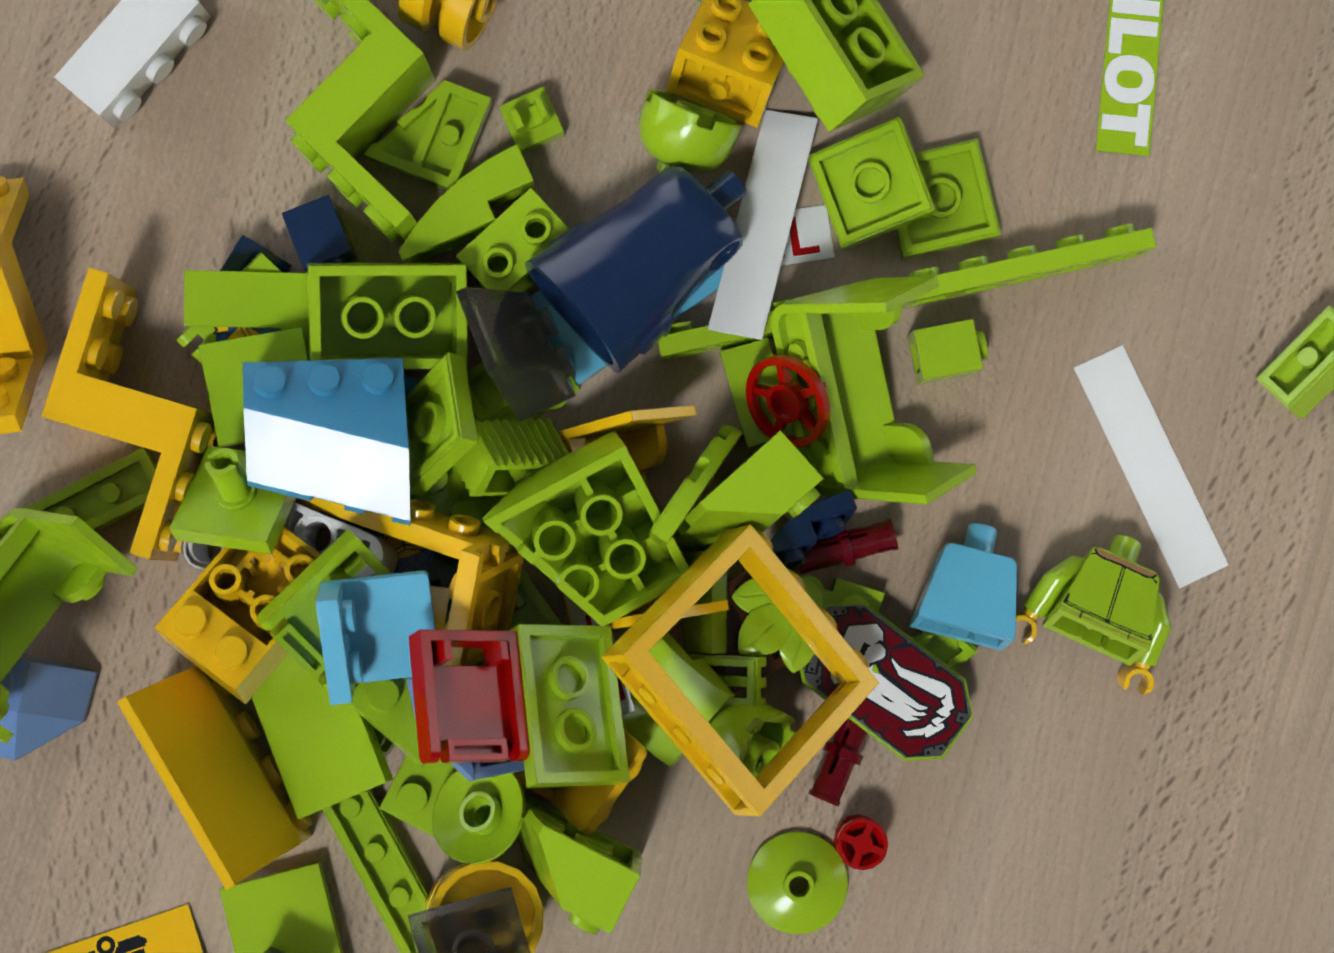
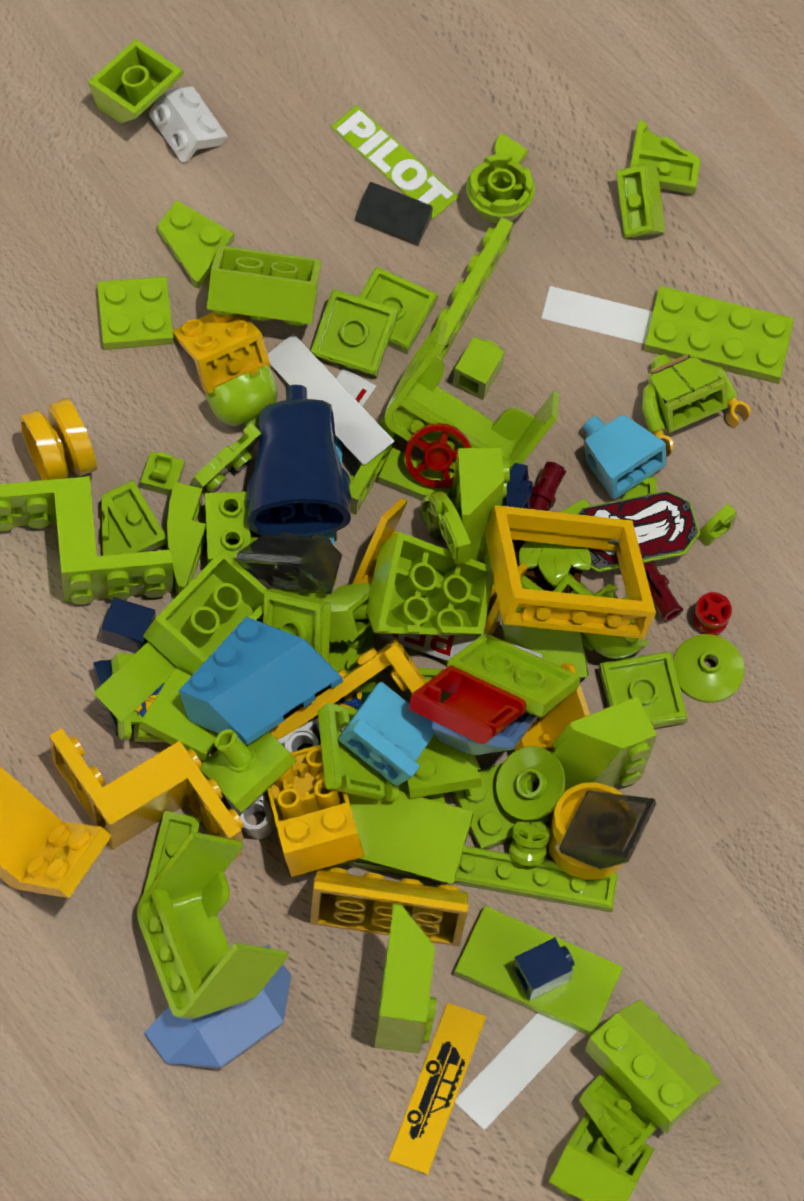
camera: 55 degrees left, 20 degrees down
(108, 882) = (405, 1000): none -> lime wedge
(429, 855) = (529, 842): none -> lime wheel
(567, 177) = (235, 457): none -> lime wing
(701, 841) = (652, 680): none -> lime plate
(980, 766) = (718, 525): none -> lime tile
(1060, 104) = (394, 213): none -> pearl dark grey slope
(1189, 196) = (500, 188): none -> lime cone
(1221, 580) = (719, 334): none -> lime plate
(1249, 168) = (507, 146): none -> lime tile

